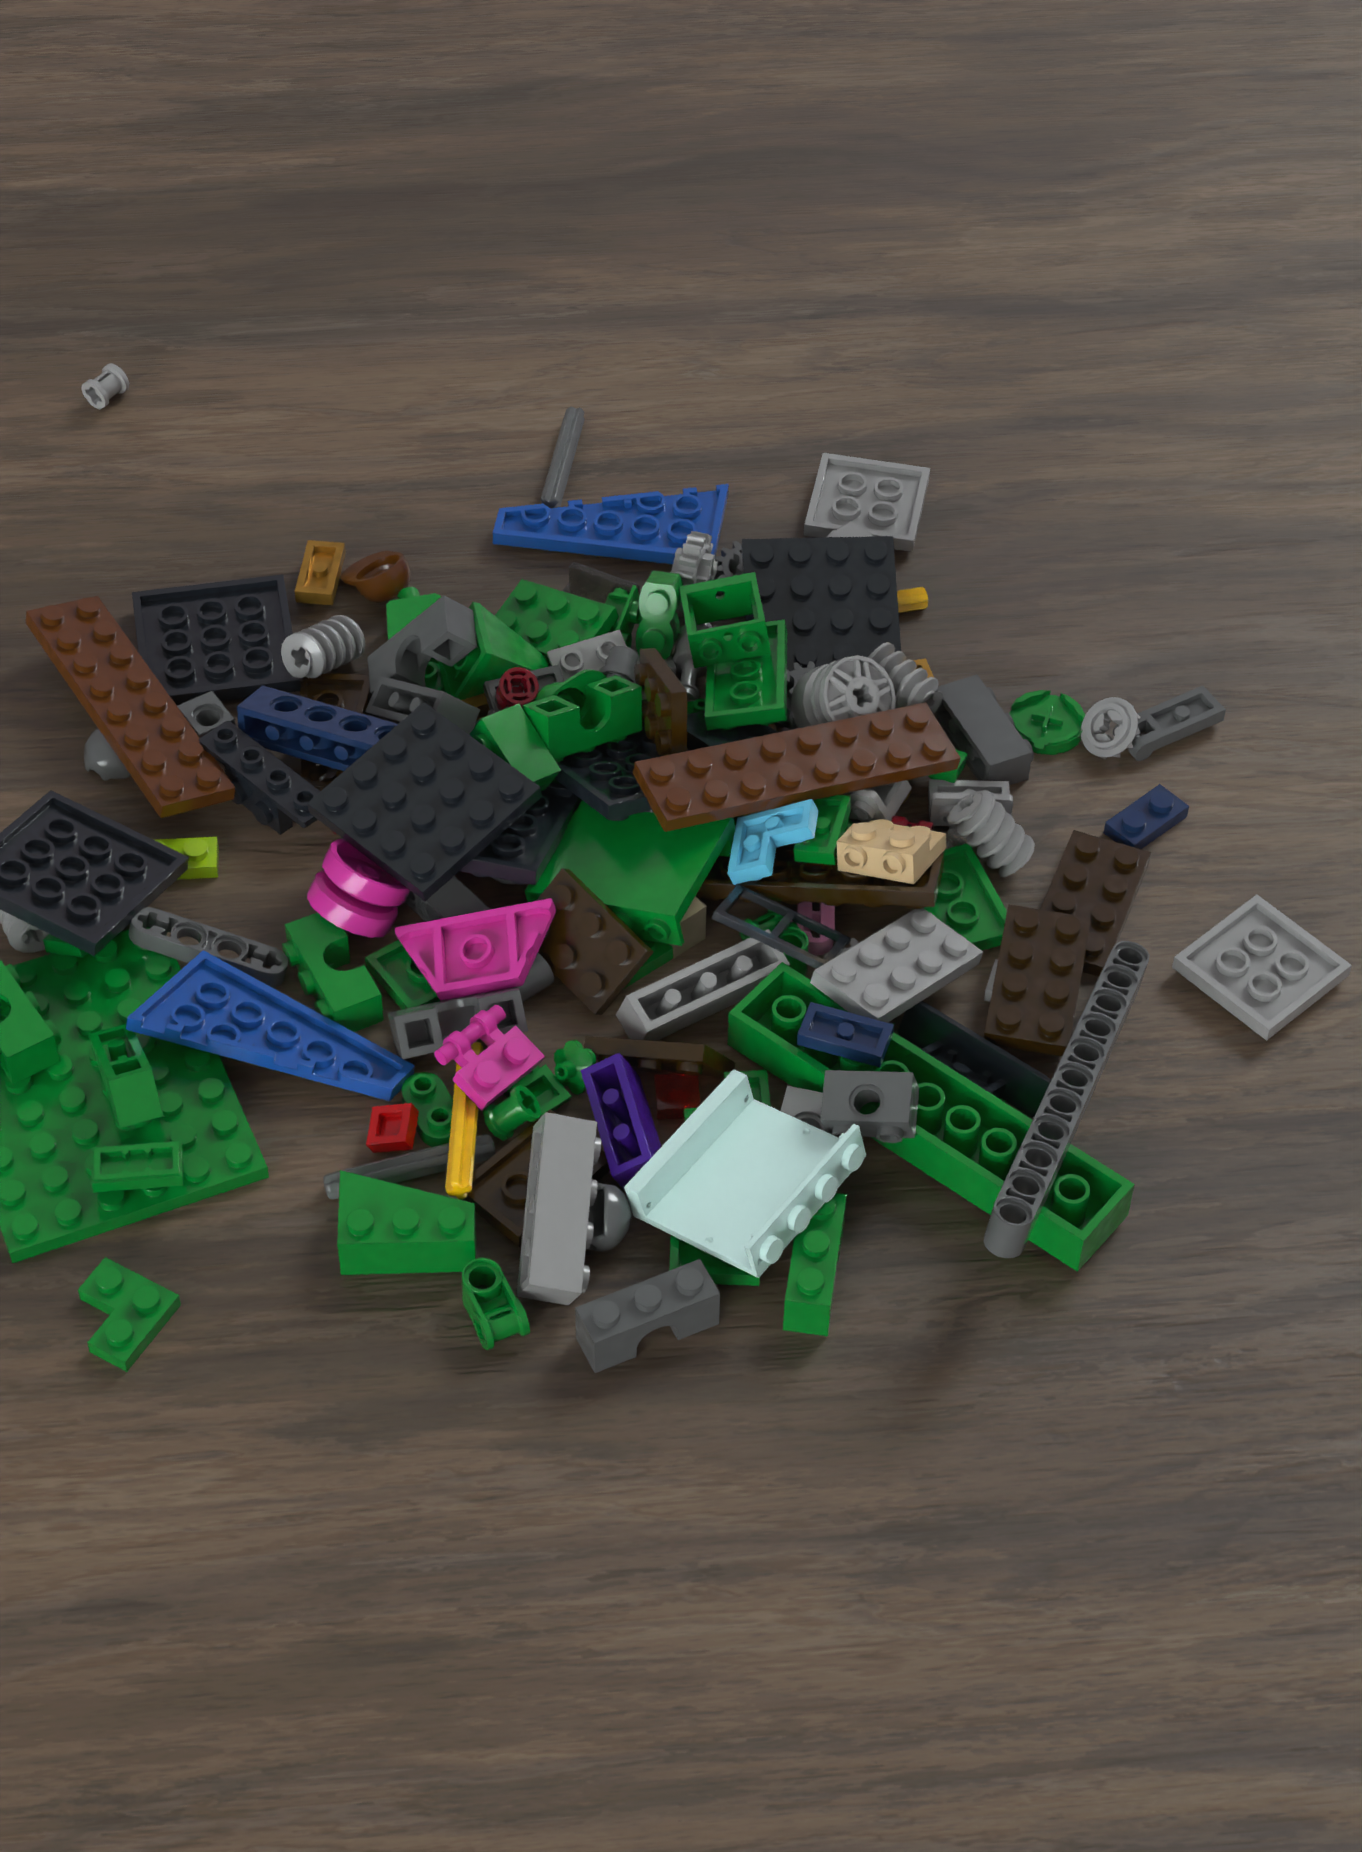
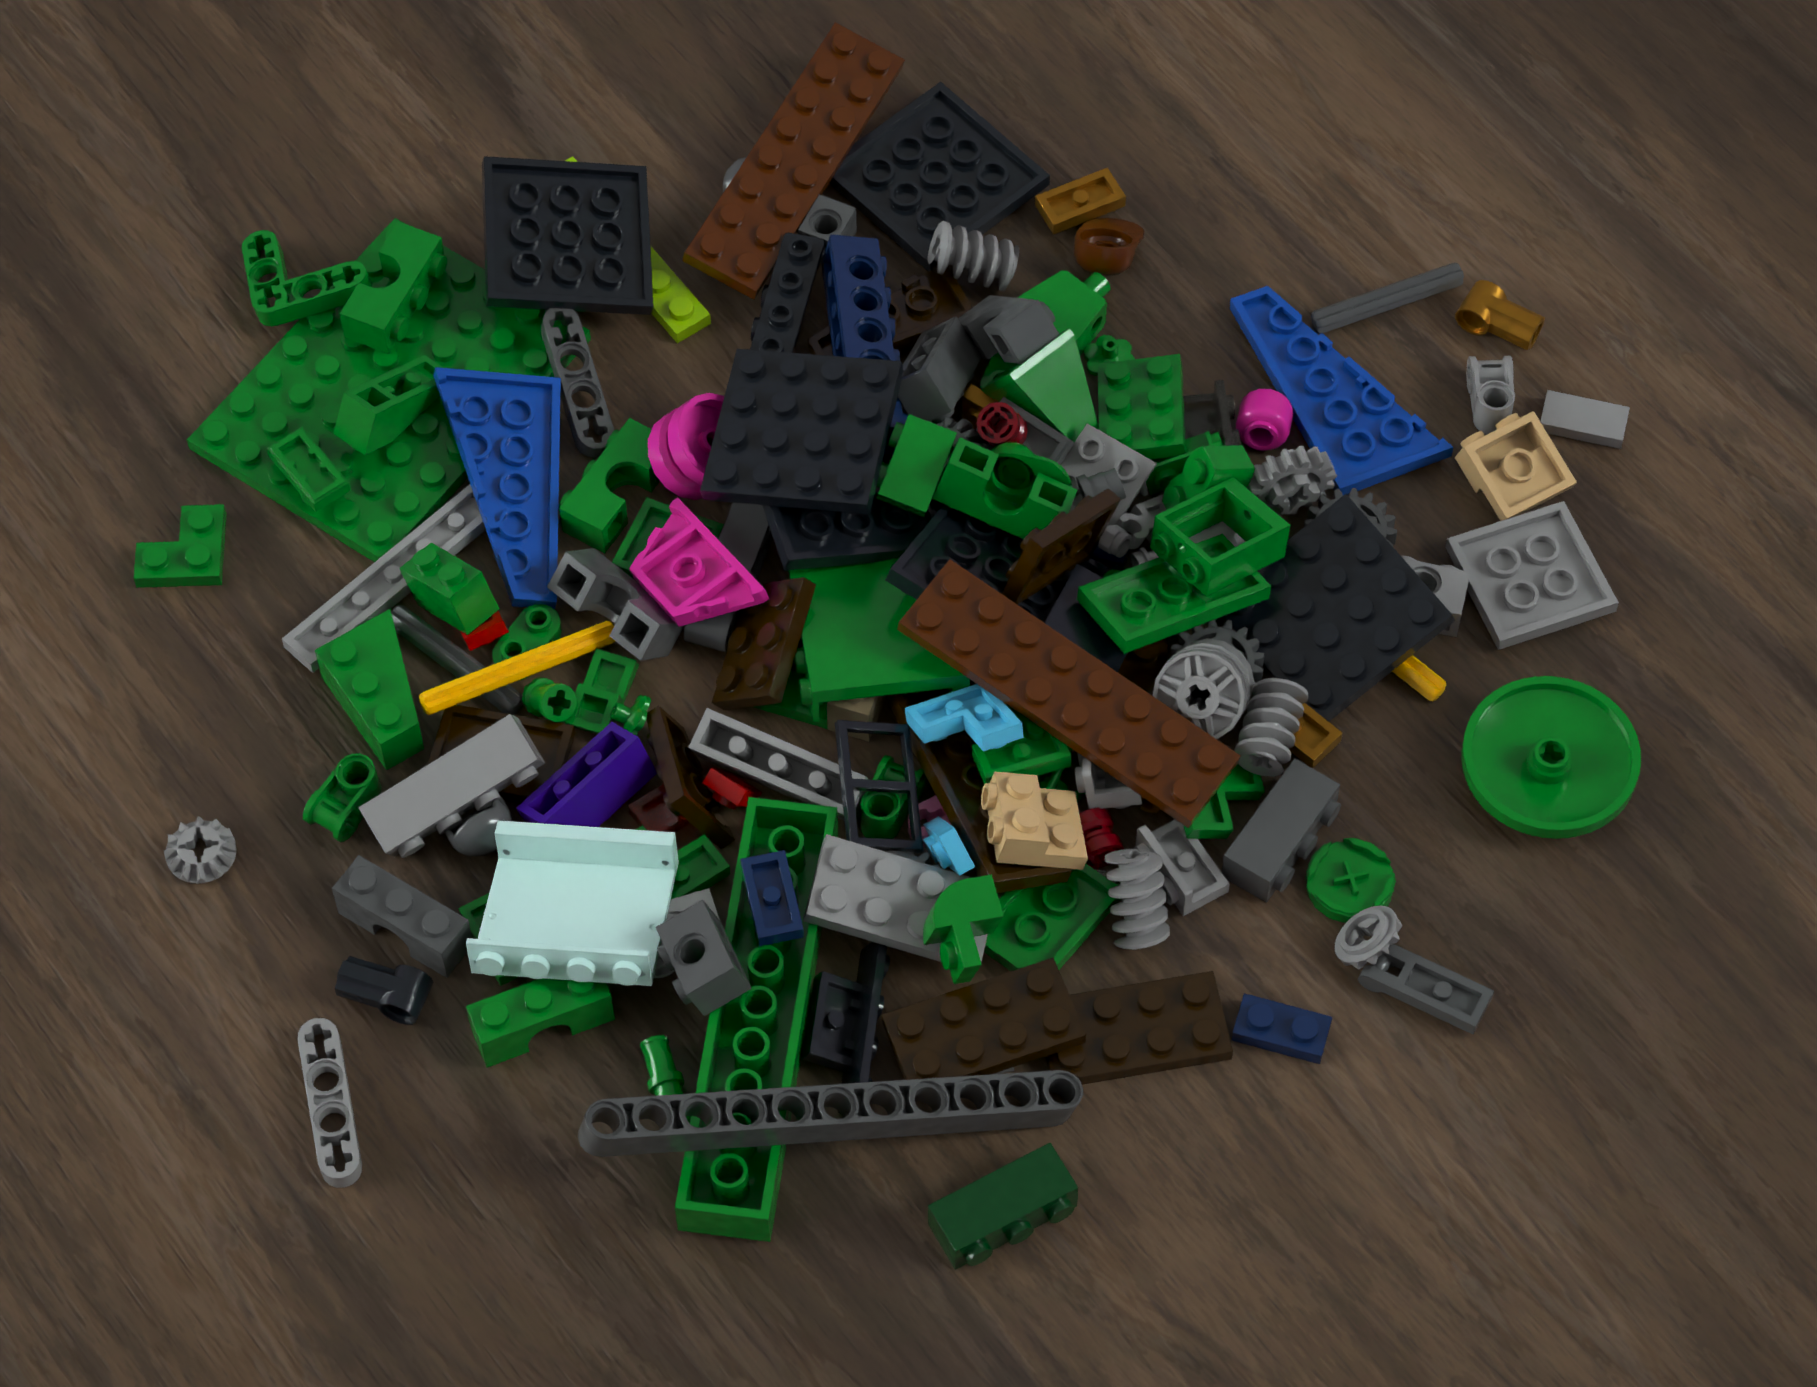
camera: 60 degrees right, 10 degrees up
(291, 1175) = (382, 583): none -> light grey plate
(348, 1124) = (449, 588): none -> green brick
(462, 1460) = (215, 859): none -> light grey gear
(498, 1066) = (576, 658): dark pink plate -> none
(618, 561) = (1264, 419): none -> dark pink head
(627, 413) = (1489, 311): none -> pearl gold piece
(695, 1033) = (729, 788): none -> red plate
(699, 444) = (1490, 391): none -> light grey piece
(716, 1357) = (396, 992): none -> black piece
(755, 415) = (1584, 419): none -> light grey tile
(771, 461) = (1515, 465): none -> tan plate
(784, 1469) = (327, 1102): none -> light grey beam
(867, 912) = (946, 846): none -> medium azure plate
(937, 1211) = (661, 1067): none -> green pin
(951, 933) = (959, 915): none -> green brick
(1034, 560) = (1551, 757): none -> green dish
(1199, 1048) = (1003, 1207): none -> dark green brick
(1261, 967) = (1151, 1216): light grey plate -> none

